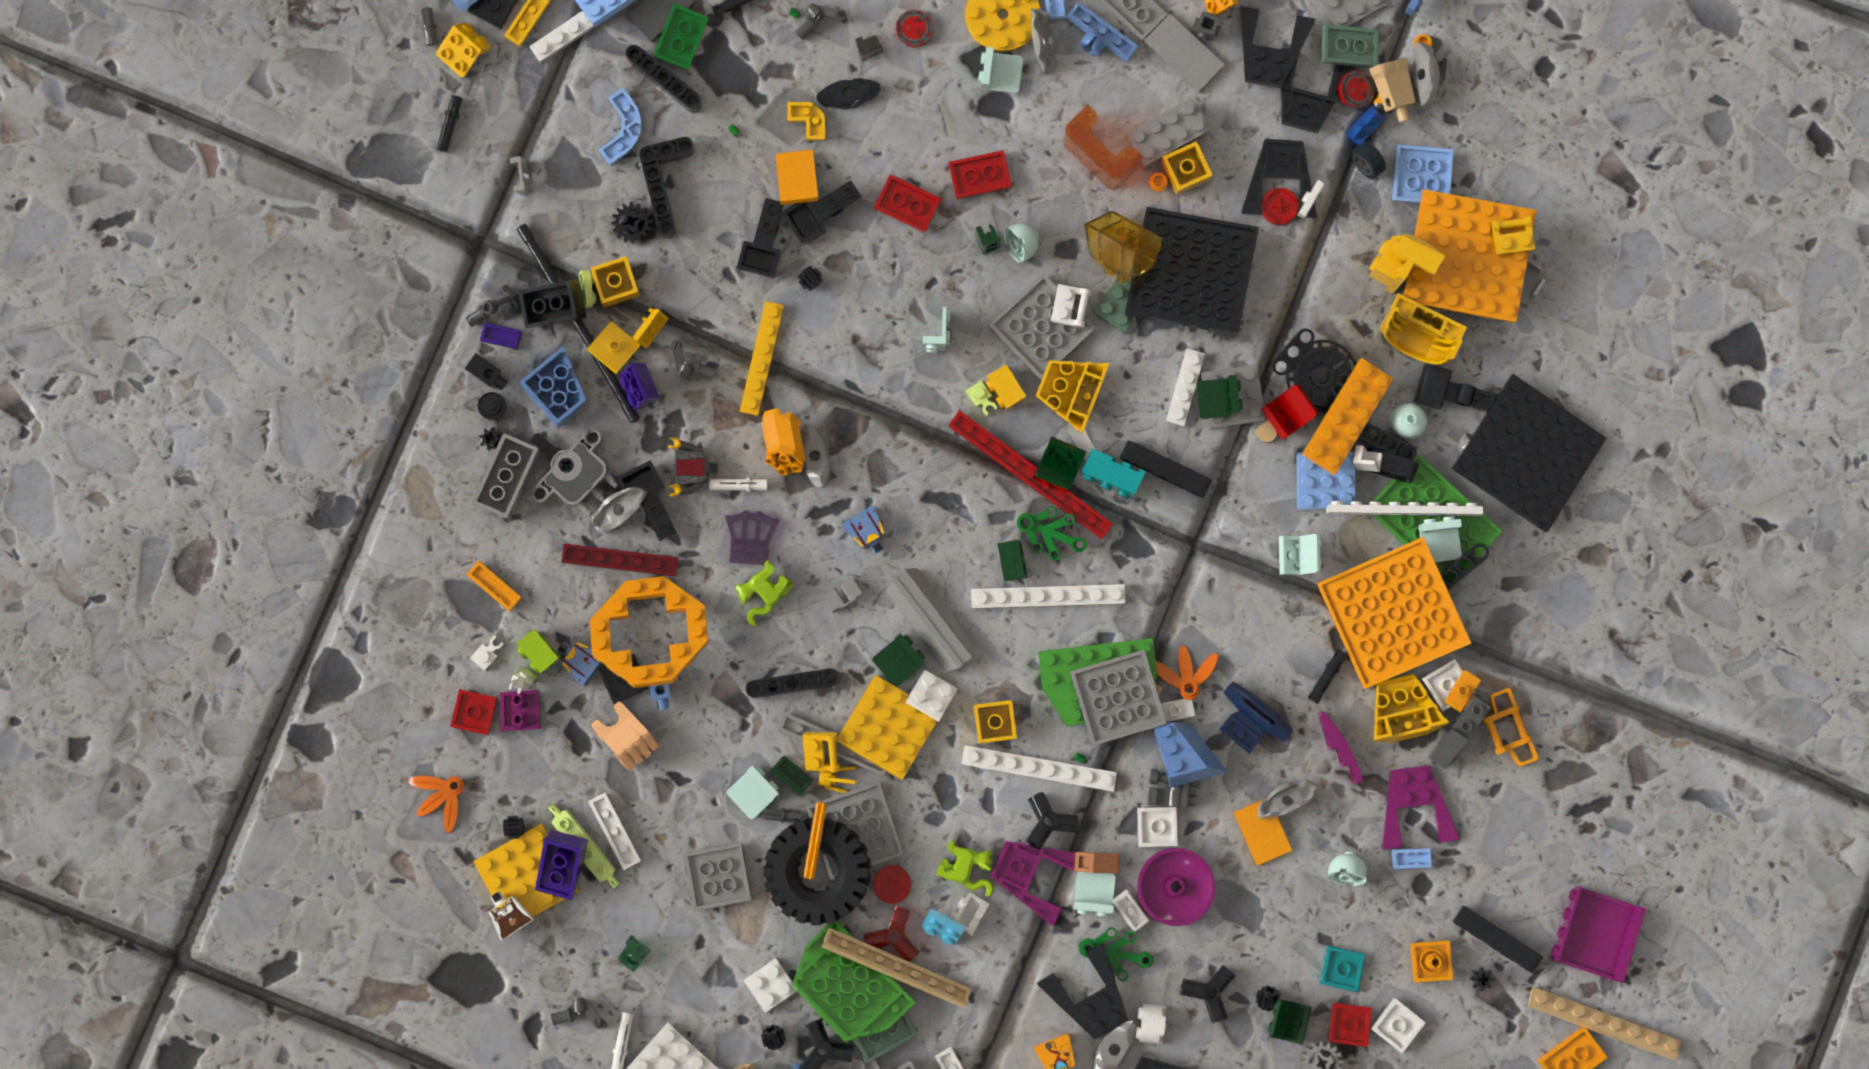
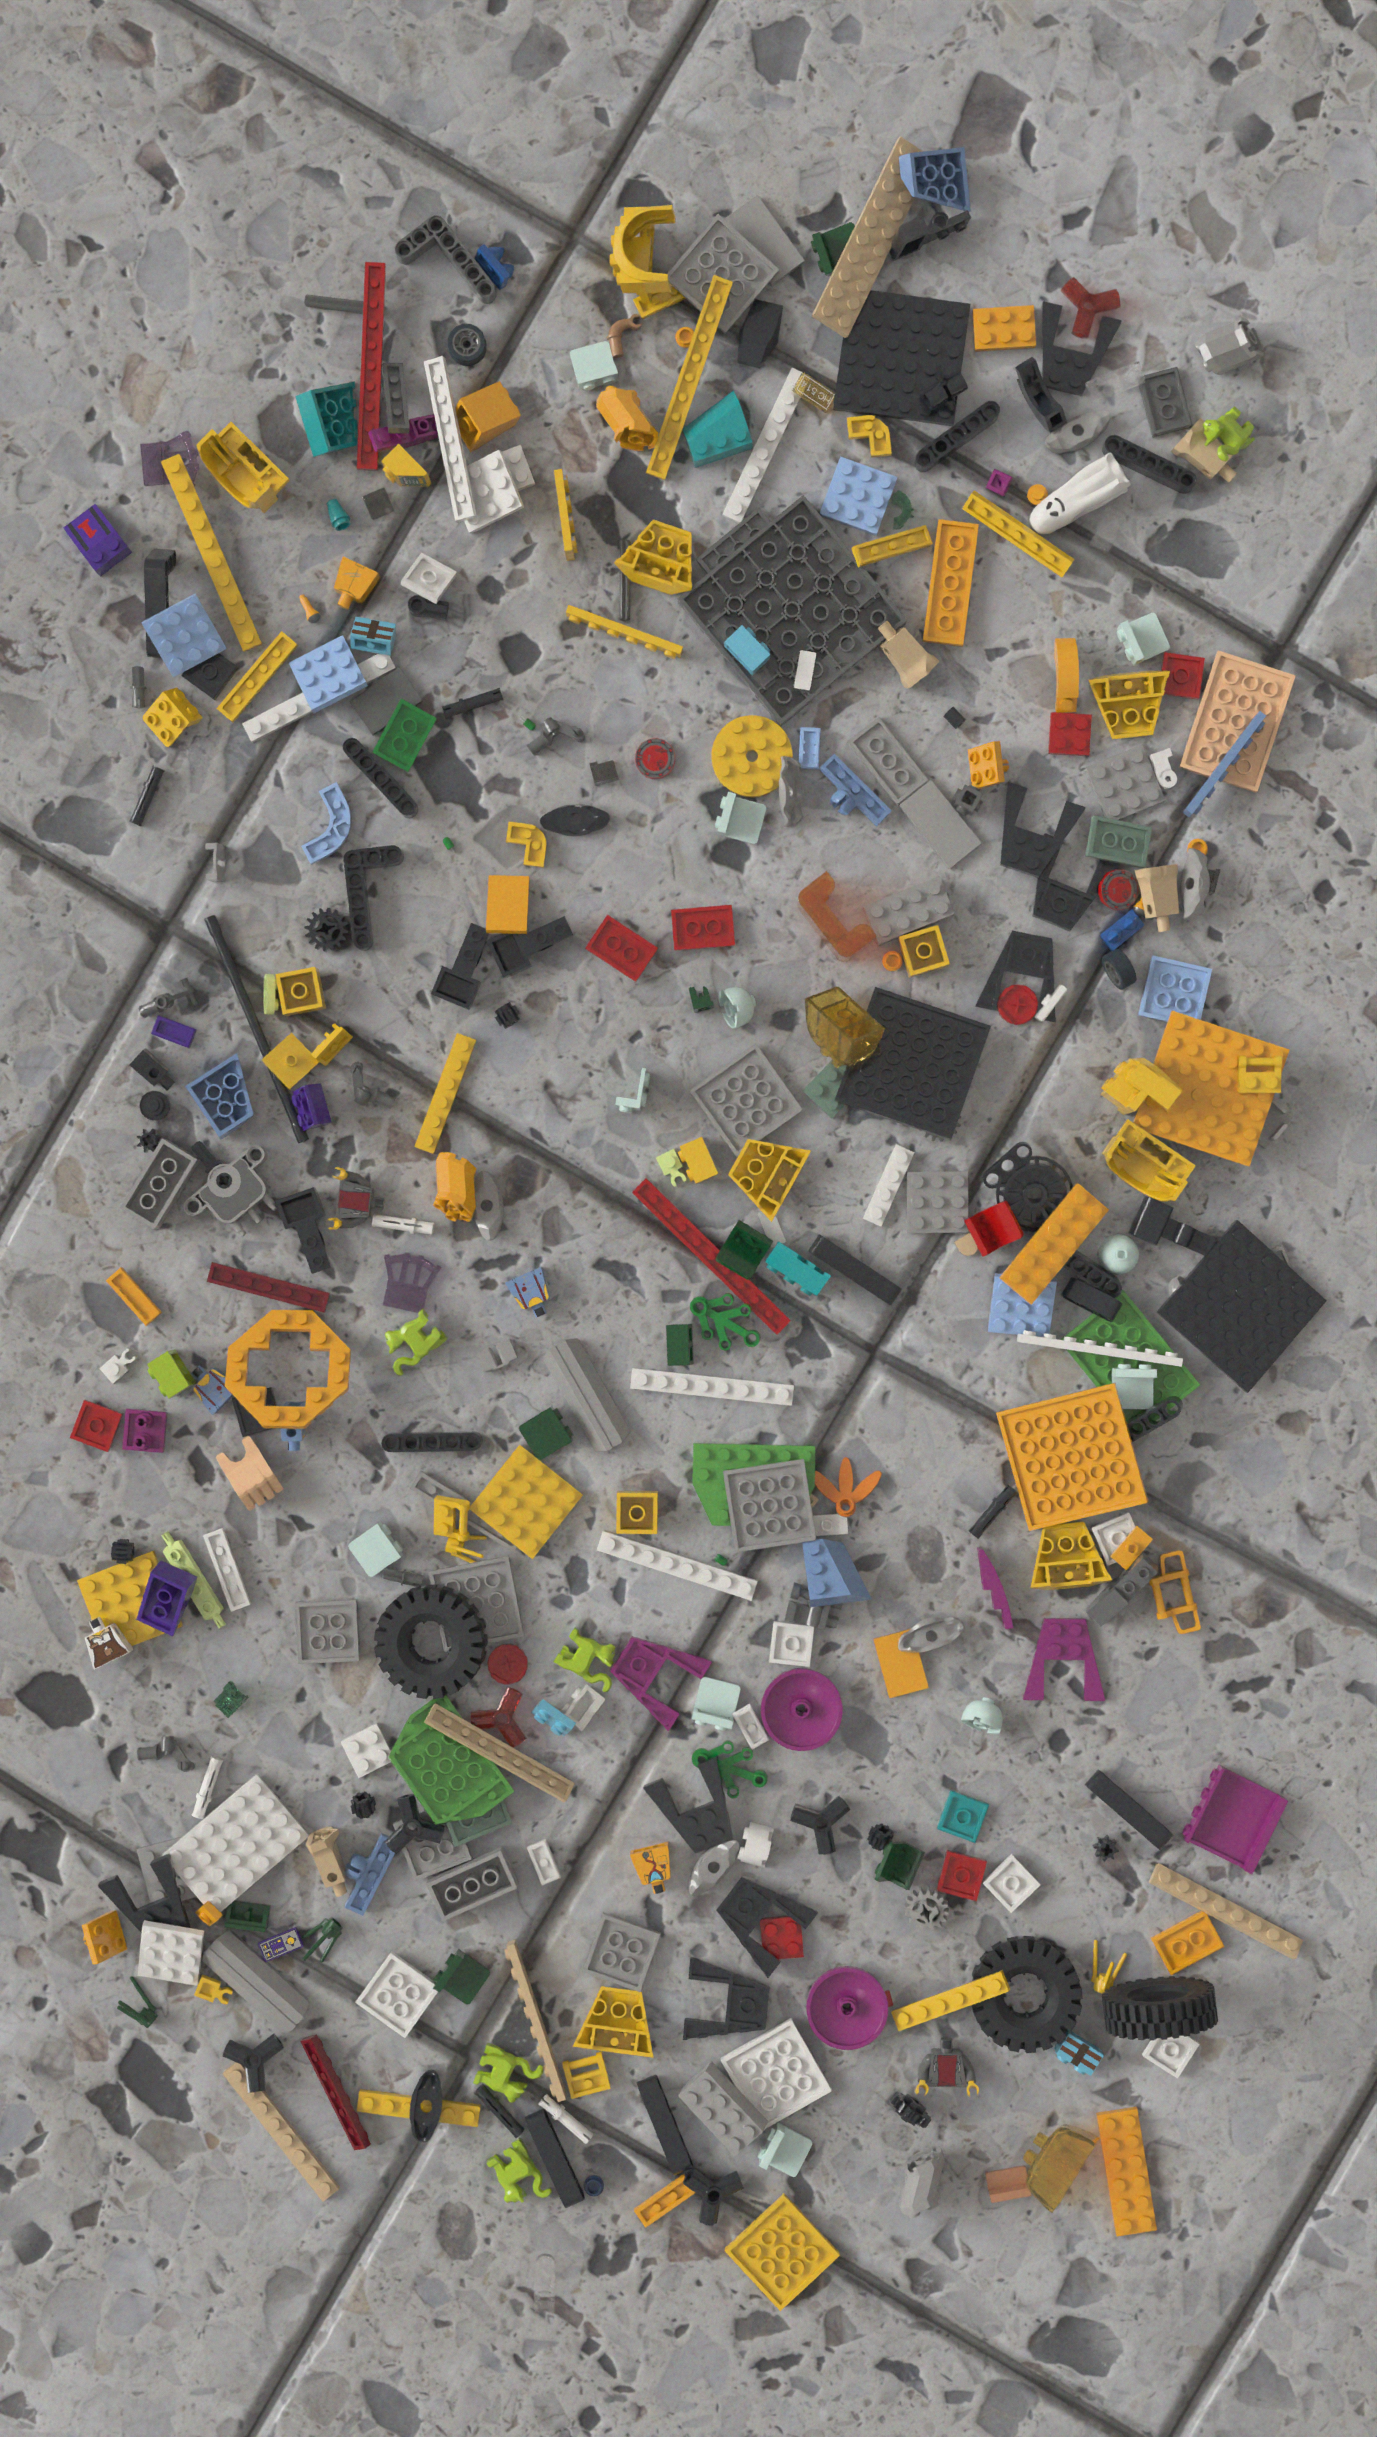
camera: 10 degrees right, 5 degrees up
(436, 799) = (46, 1511): orange plant -> none
(522, 679) = (150, 1399): white plate -> none
(552, 304) = (230, 1007): black brick -> none
(606, 517) = (259, 1240): light grey piece -> none
(791, 775) = (418, 1538): dark green hinge -> none
(815, 840) = (431, 1612): light orange axle -> none
(931, 695) = (575, 1474): white plate -> none
(1042, 831) = (691, 1625): black piece -> none
(1064, 304) = (772, 1080): white plate -> none
(1097, 862) = (723, 1673): nougat slope -> none
(1219, 397) = (921, 1203): dark green bracket -> none
(1253, 718) = (906, 1546): dark blue plate -> none
(1299, 554) = (982, 1380): light aqua bracket -> none
(1367, 460) = (1068, 1291): white panel -> none
(1411, 858) = (1052, 1713): light blue plate -> none
(1431, 961) = (1056, 1822): light orange plate -> none

